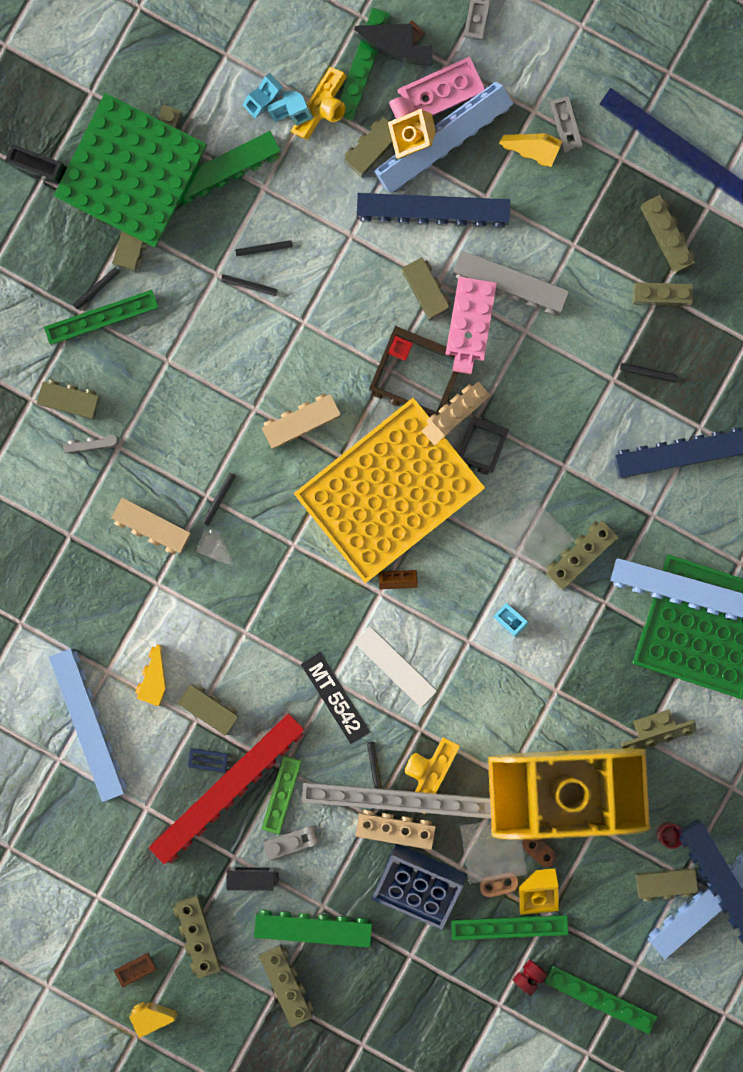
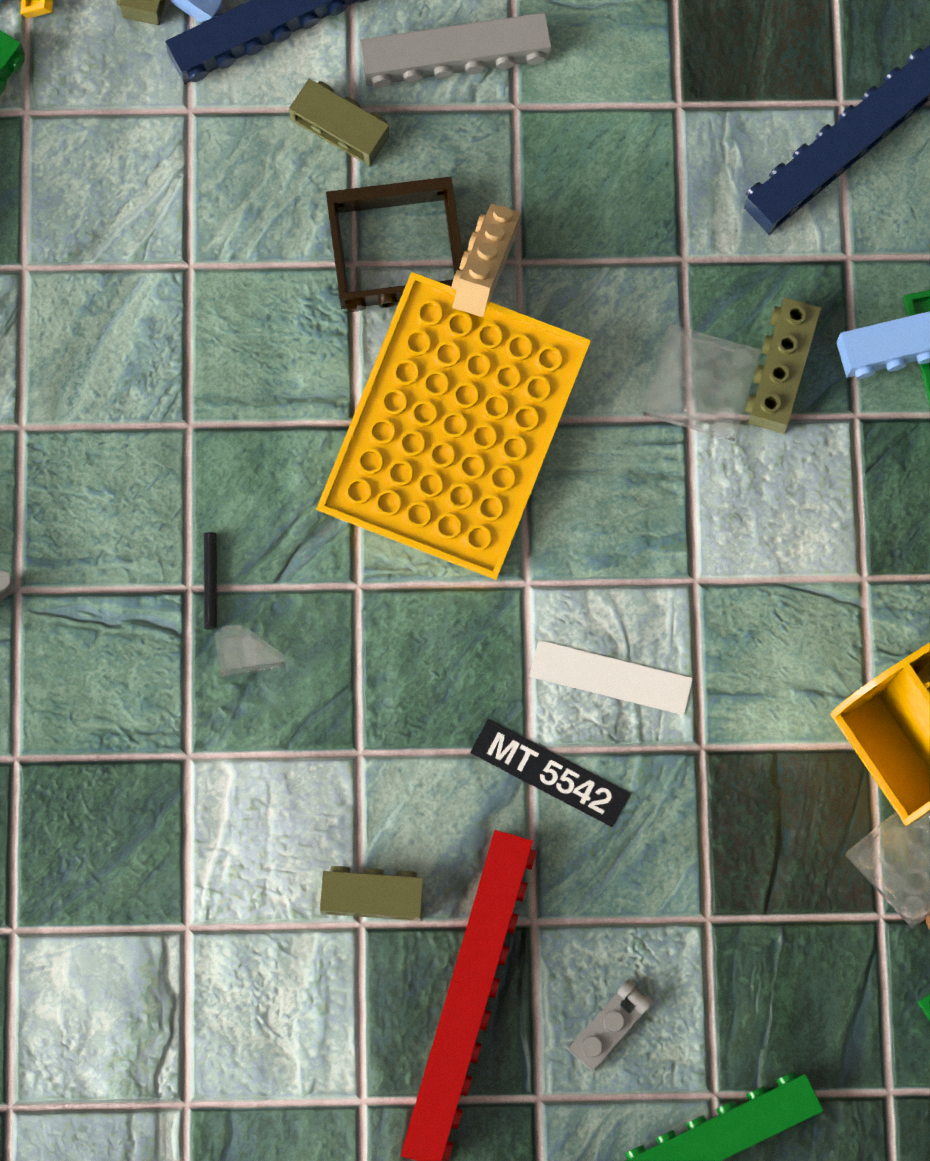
camera: 30 degrees left, 10 degrees down
(87, 724) = (202, 1024): light blue brick -> none
(148, 524) = (131, 672): tan brick -> none
(154, 682) = (268, 905): yellow slope -> none
(207, 752) = (441, 963): dark blue tile -> none
(249, 285) = (81, 255): black bar -> none
(252, 878) = (585, 1110): black window -> none
(264, 248) = (73, 193): black bar -> none
(281, 795) = (555, 961): bright green tile -> none
(301, 421) = (267, 401): tan brick -> none
(374, 765) = (672, 844): black bar -> none
(394, 830) = (754, 914): tan brick -> none
(396, 800) = (733, 865): light grey plate -> none
(398, 579) = (541, 547): reddish brown plate -> none
(400, 348) = (352, 218): red tile -> none
(419, 886) = (841, 978): dark blue slope -> none
(432, 771) = (756, 799): yellow plate -> none
(470, 314) = (427, 113): bright pink hinge -> none
(492, 428) = (550, 260): black window -> none
(511, 620) = (740, 513): medium azure slope -> none
(648, 372) = (722, 67): black bar -> none

